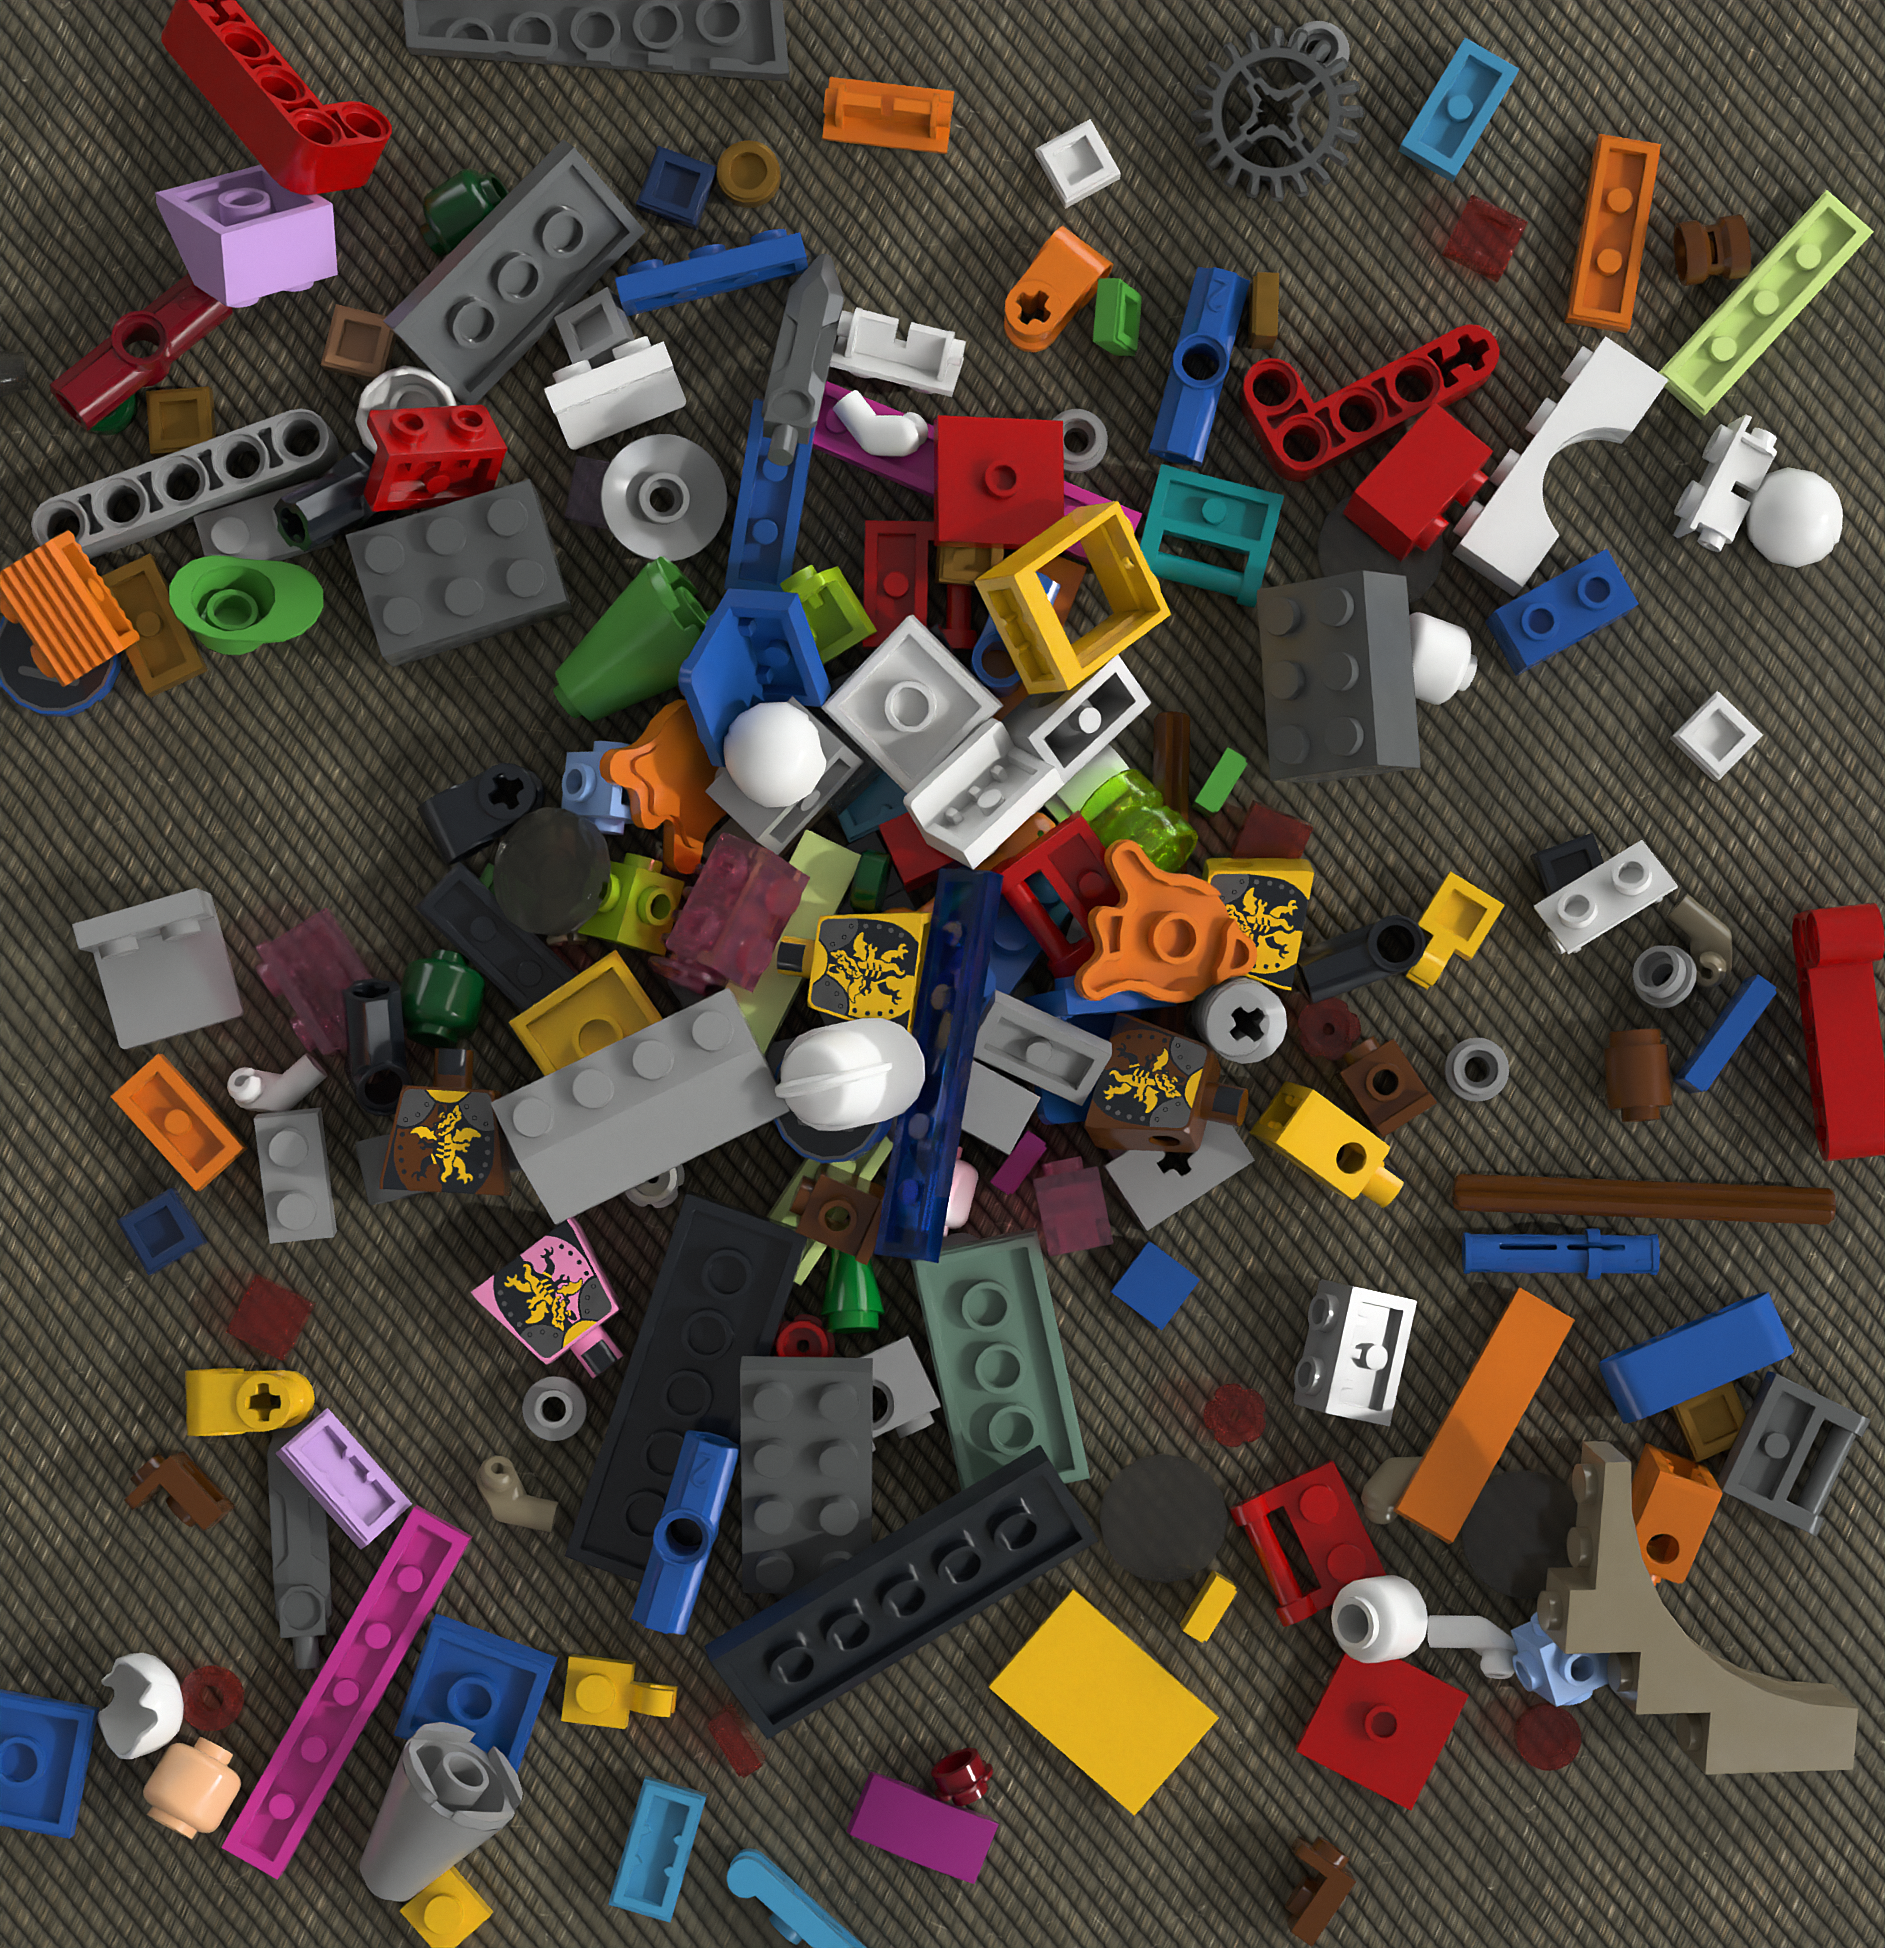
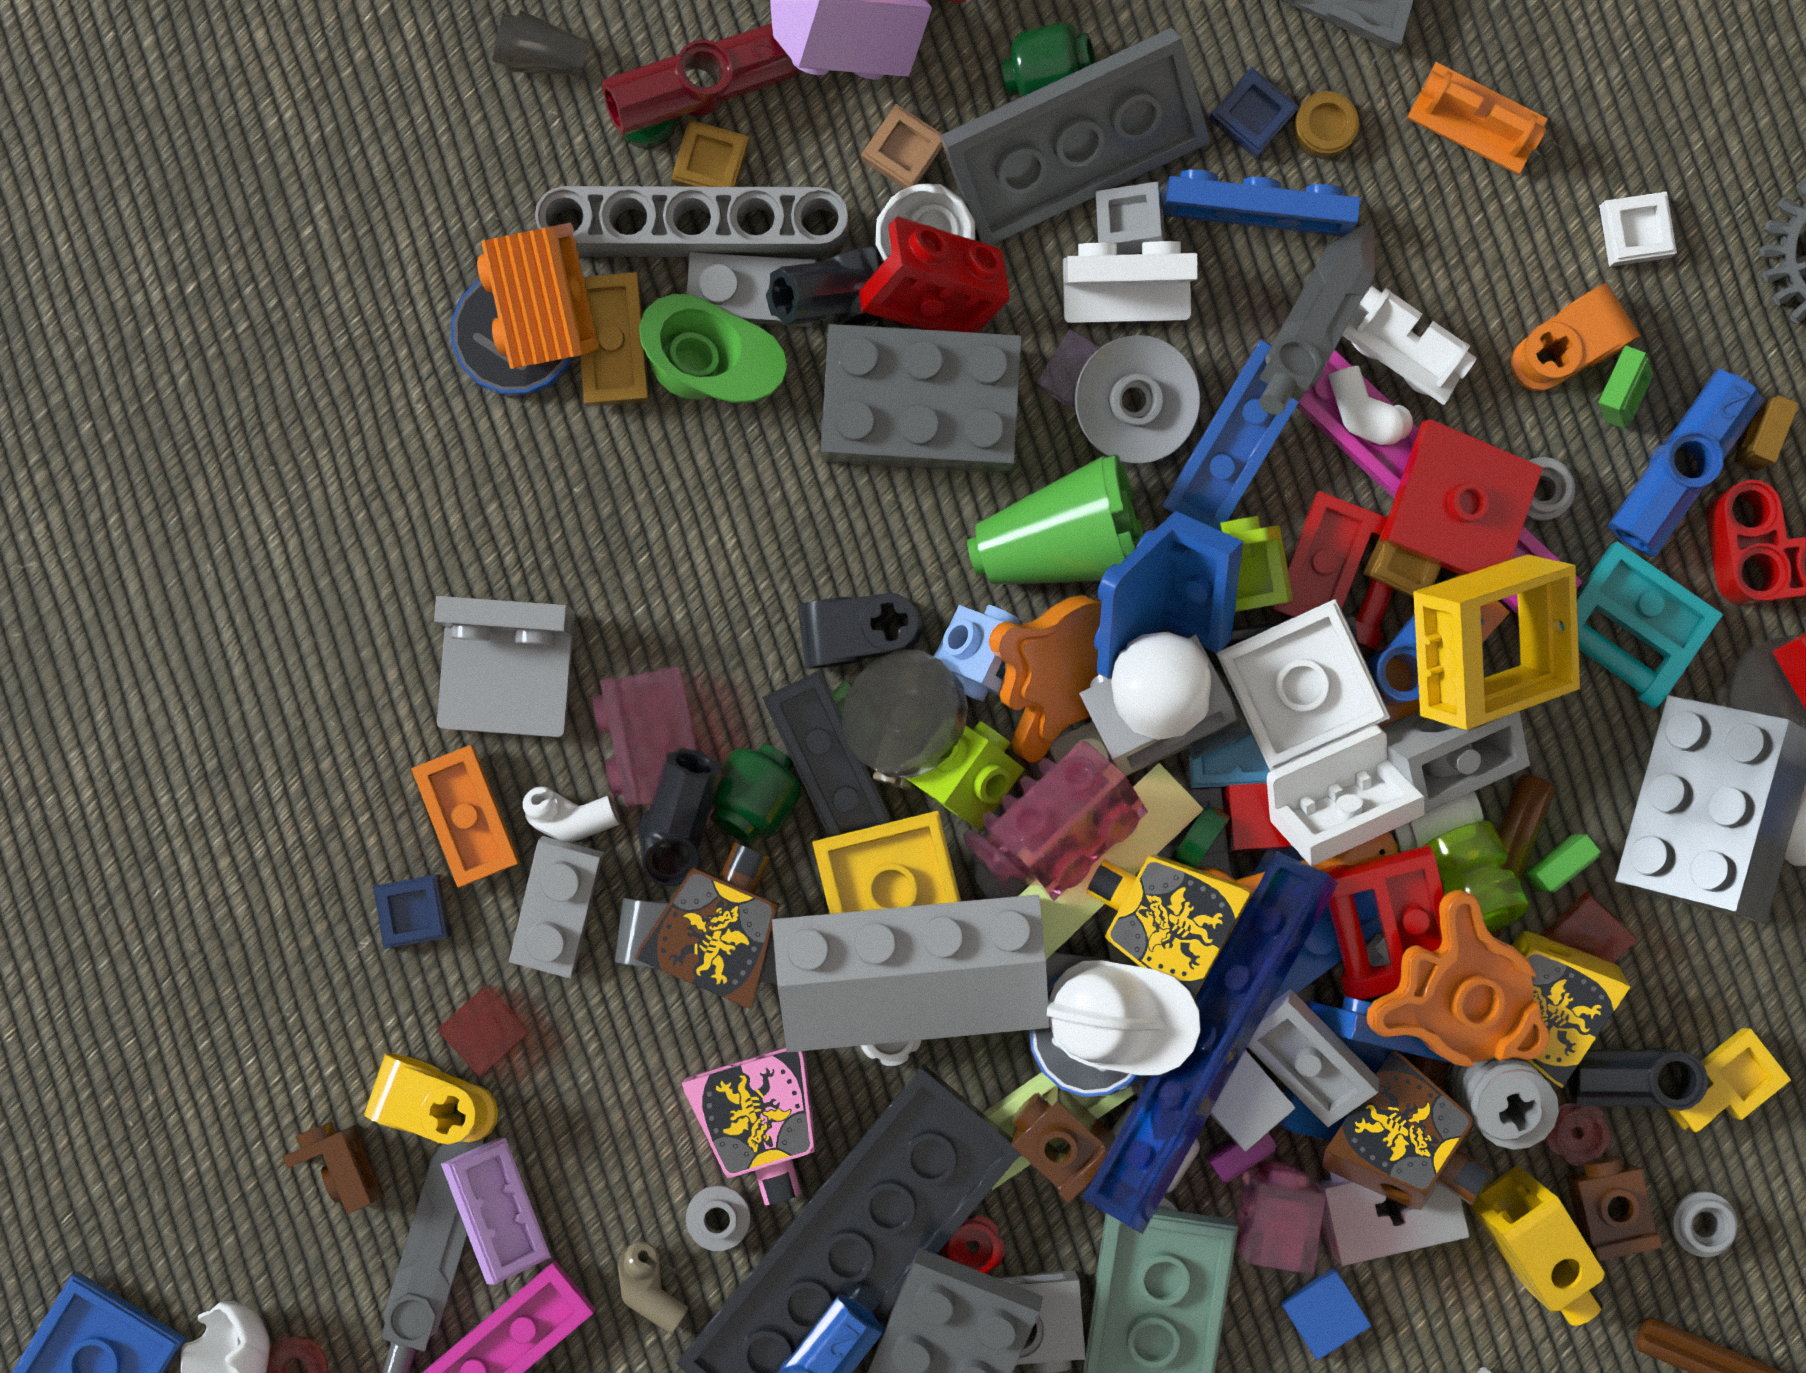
camera: 15 degrees right, 0 degrees up
(851, 1296) = (1036, 1217): green cone -> none

